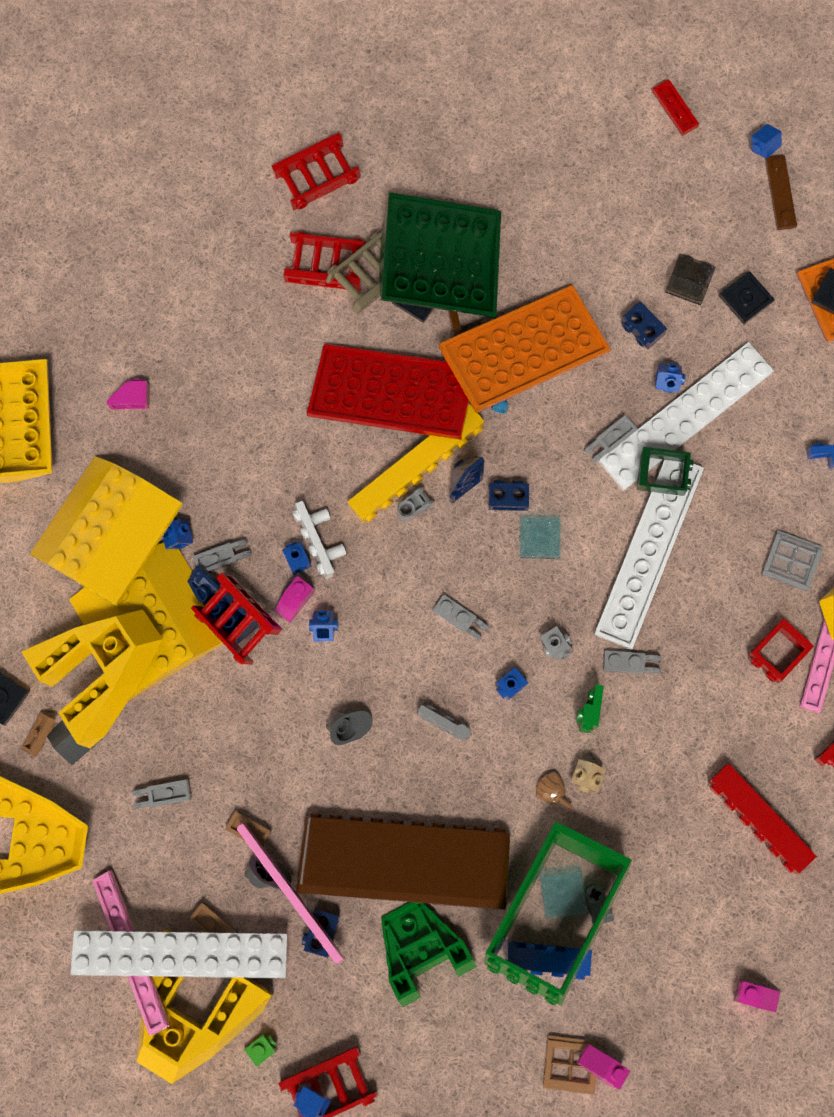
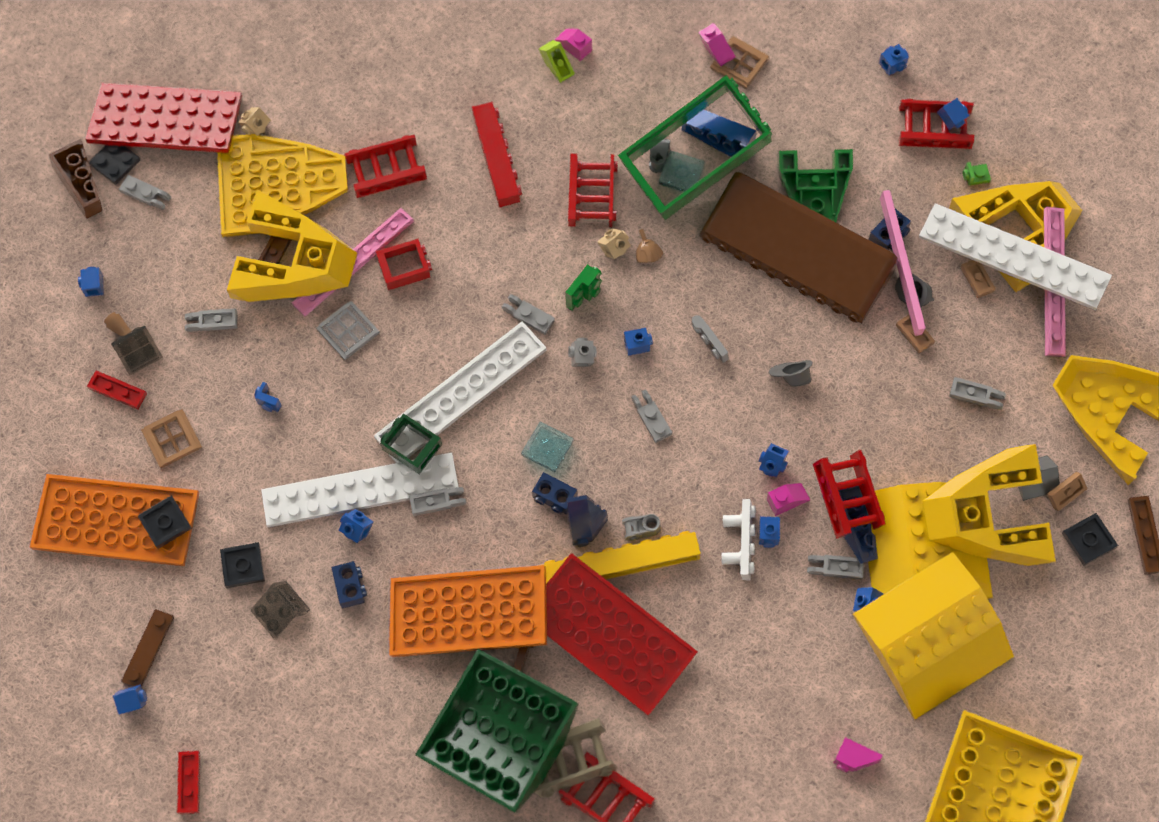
camera: 155 degrees left, 10 degrees down
(653, 809) = (576, 182): none -> red fence
(762, 963) = (556, 60): none -> lime slope

